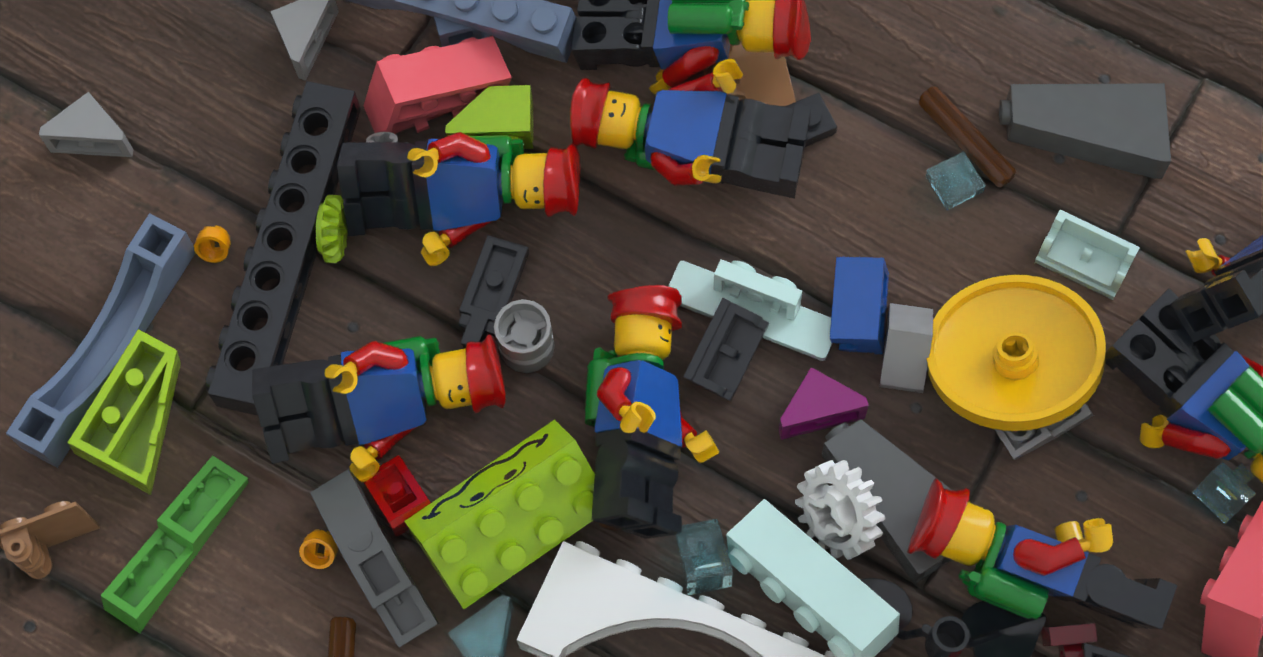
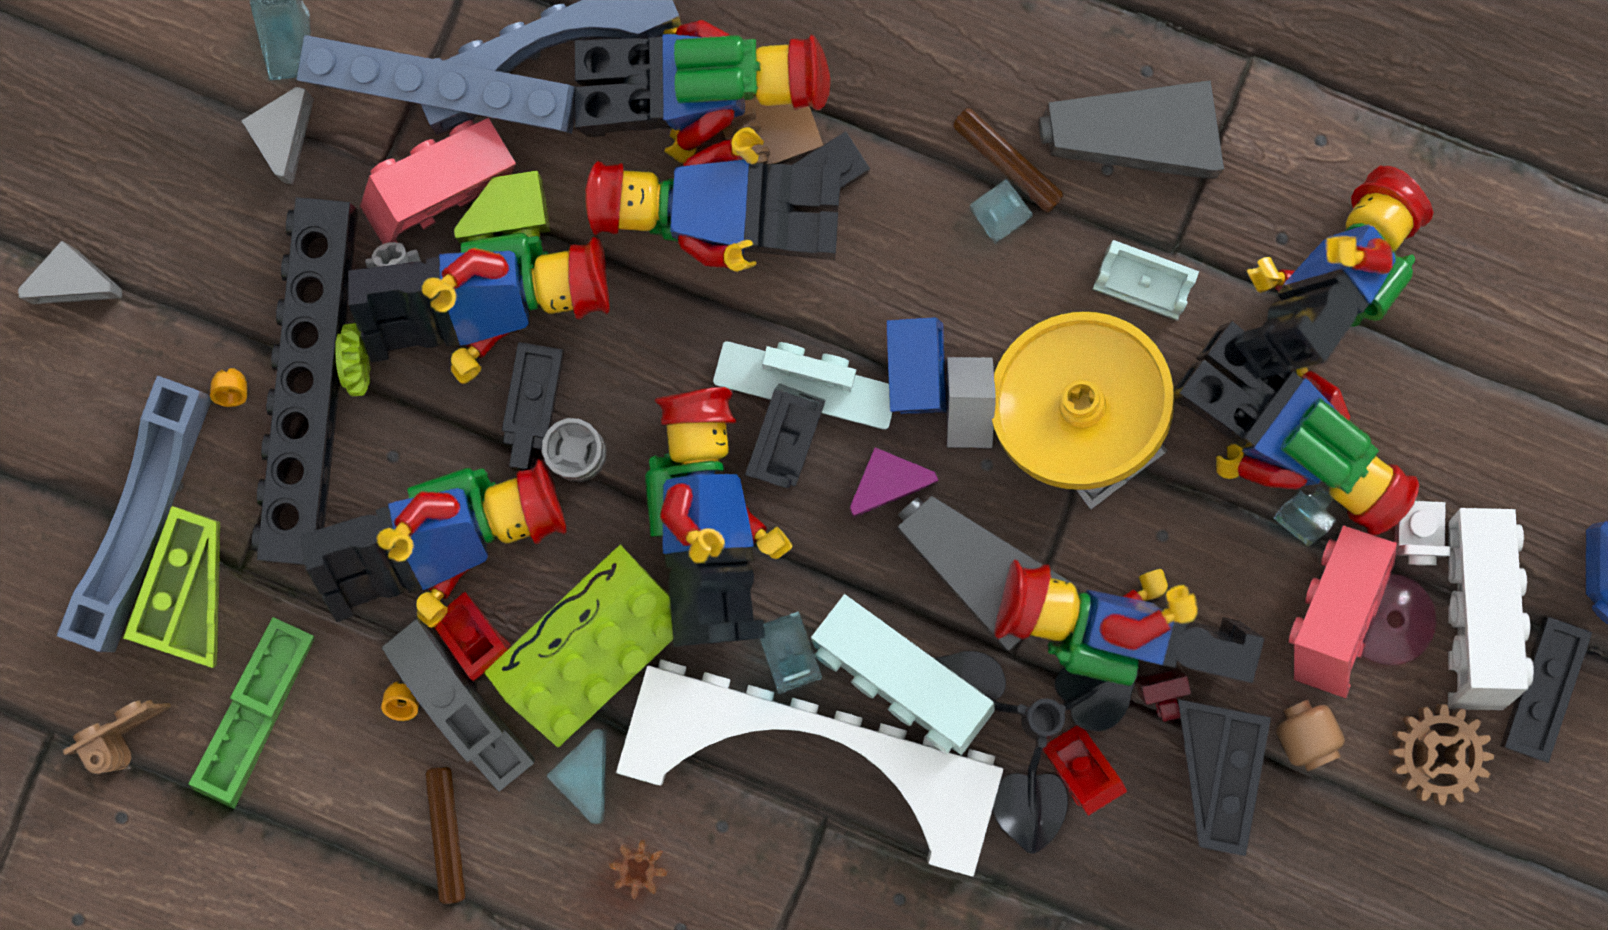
camera: 10 degrees left, 15 degrees up
(840, 509) = (921, 594): white gear -> none

